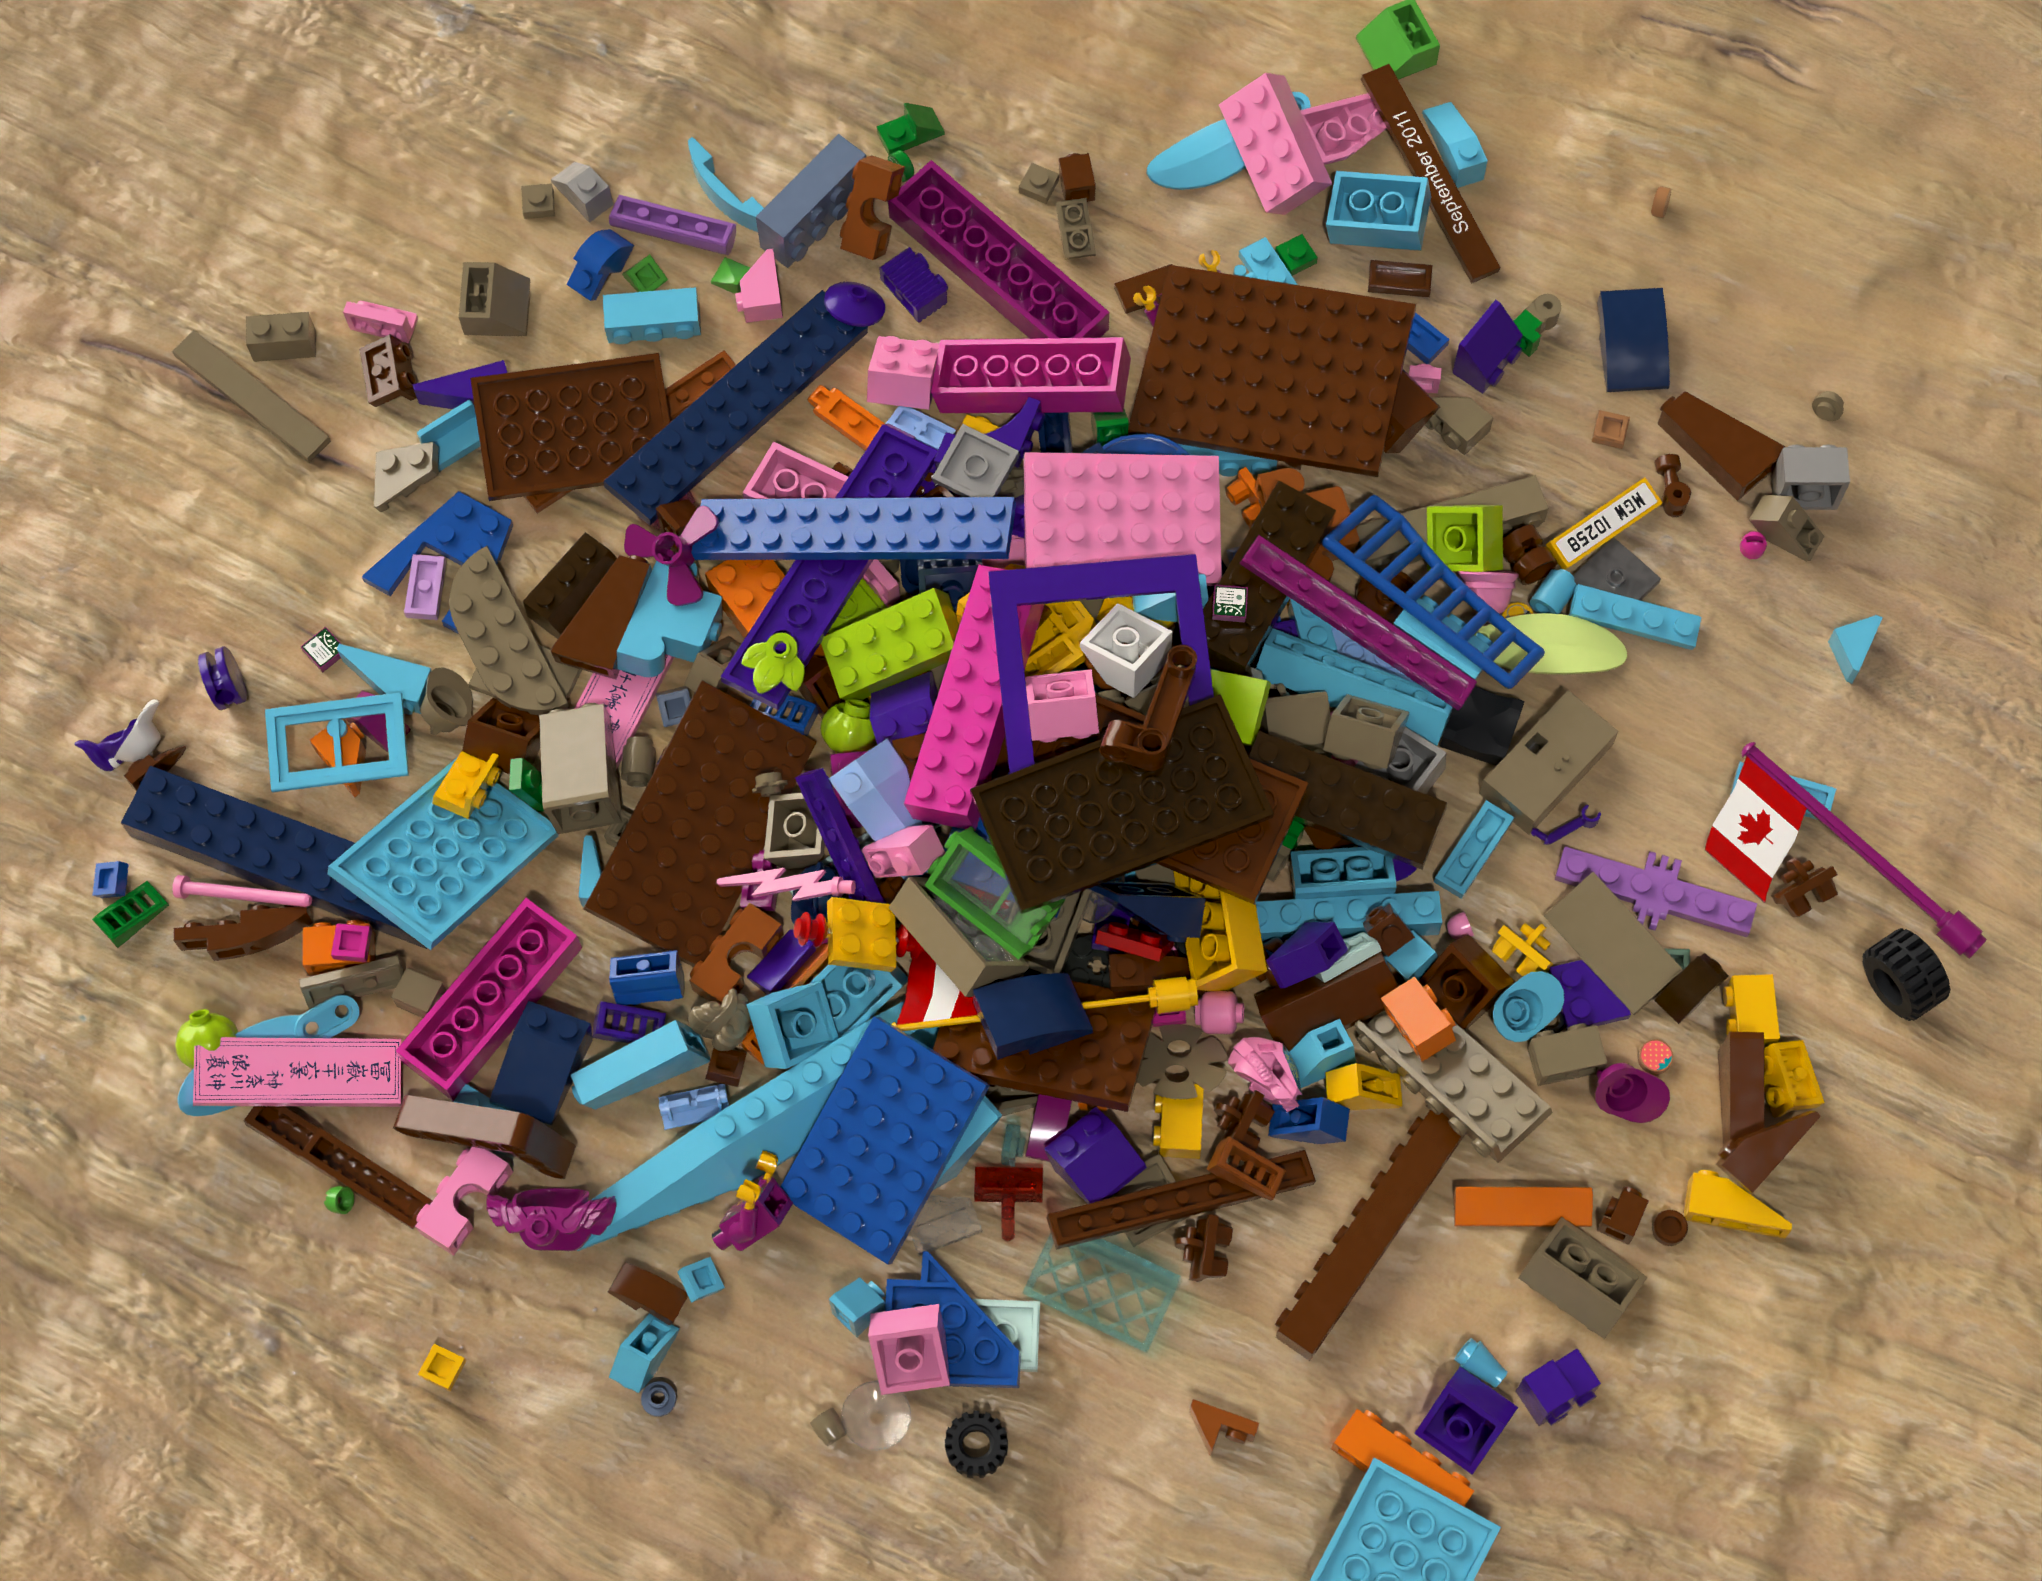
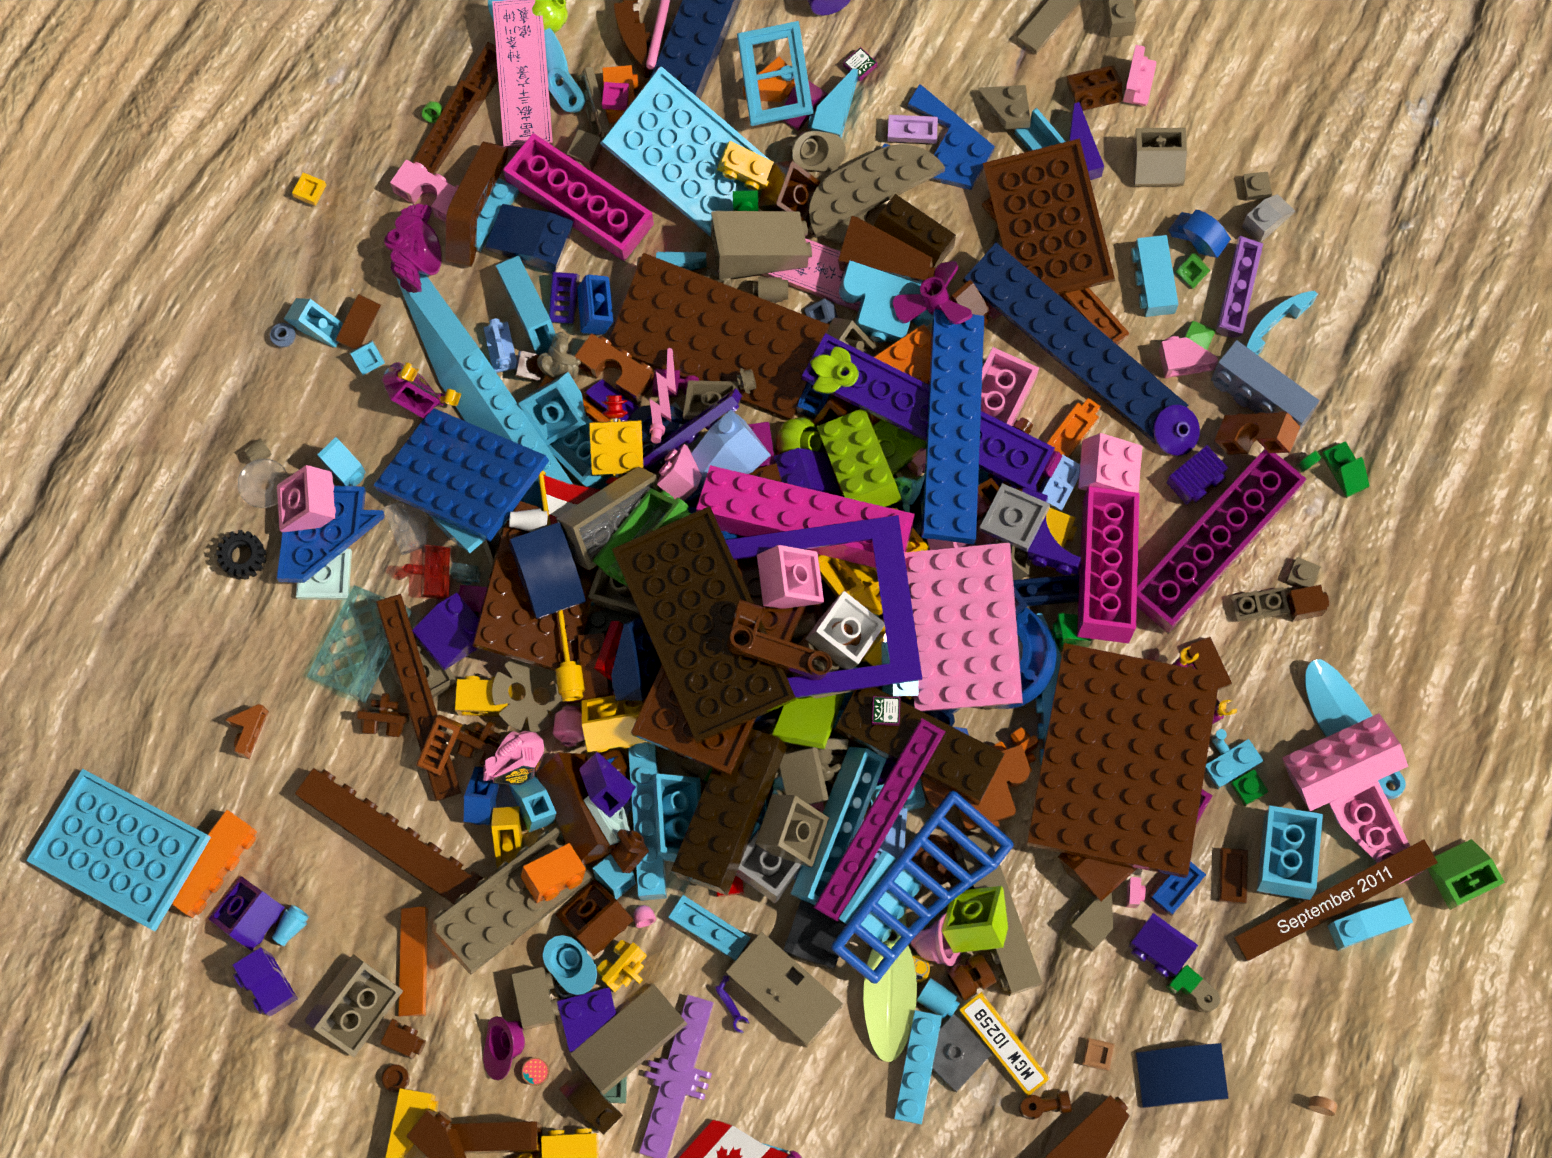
camera: 90 degrees right, 5 degrees up
(936, 574) = (909, 496): none -> medium azure piece
(963, 1033) = (528, 520): none -> white cone

